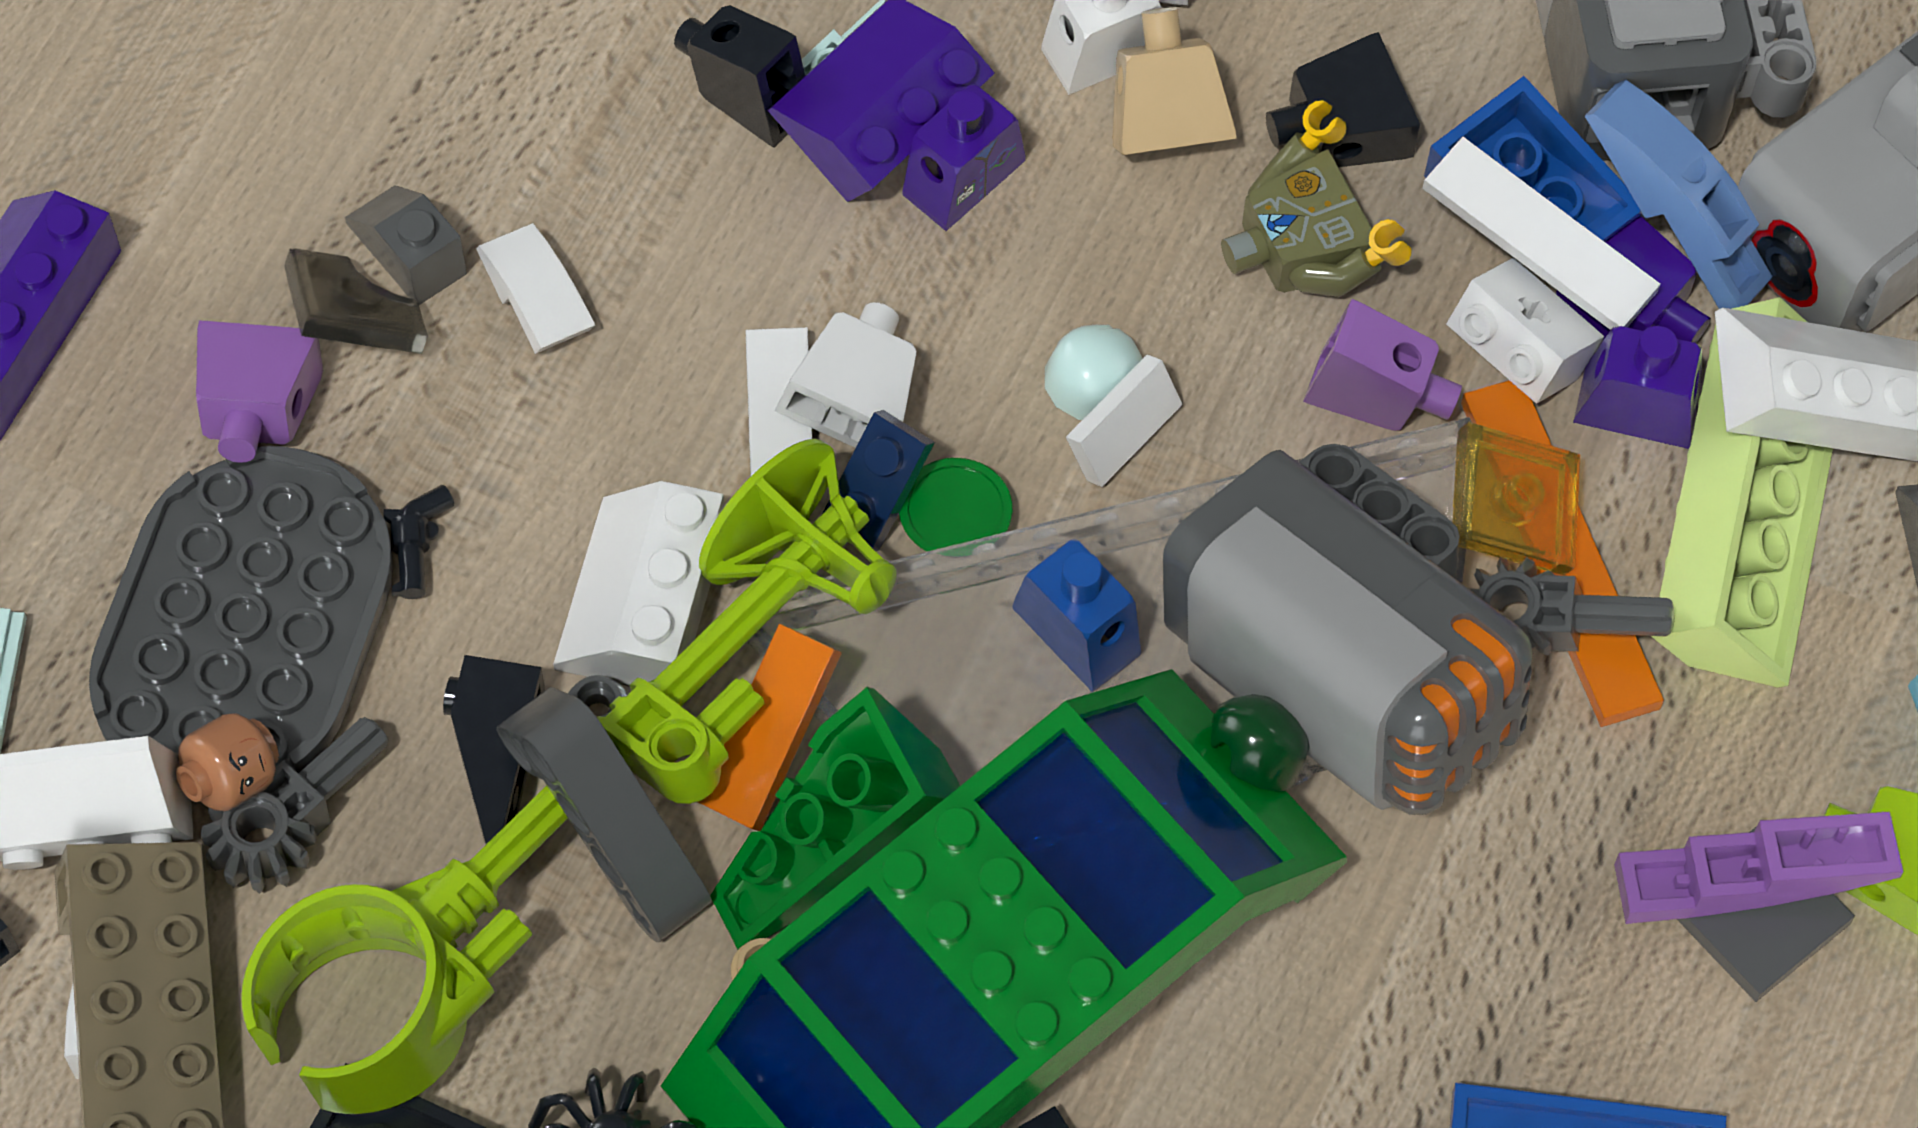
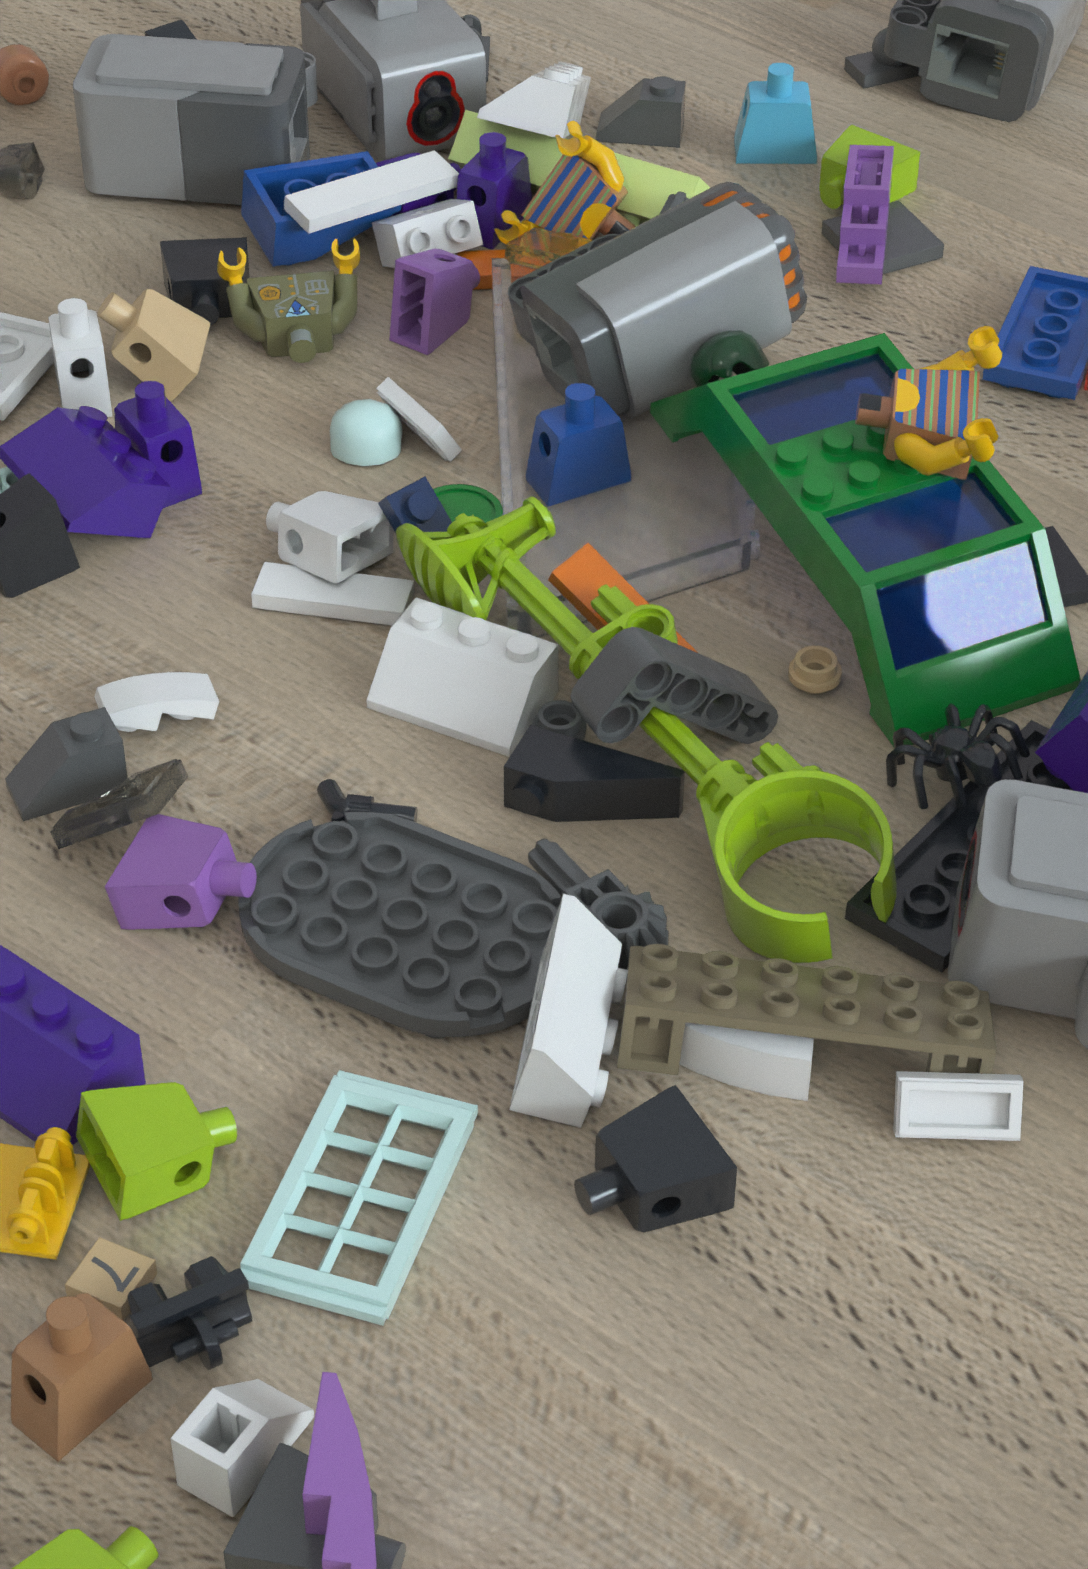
camera: 75 degrees left, 20 degrees down
(227, 762) = (546, 891): nougat head -> none
(849, 800) = (720, 572): green wedge -> none
(1032, 976) = (934, 411): none -> torso
(1640, 483) = (577, 194): none -> torso
(1680, 178) = (369, 121): medium blue slope -> none

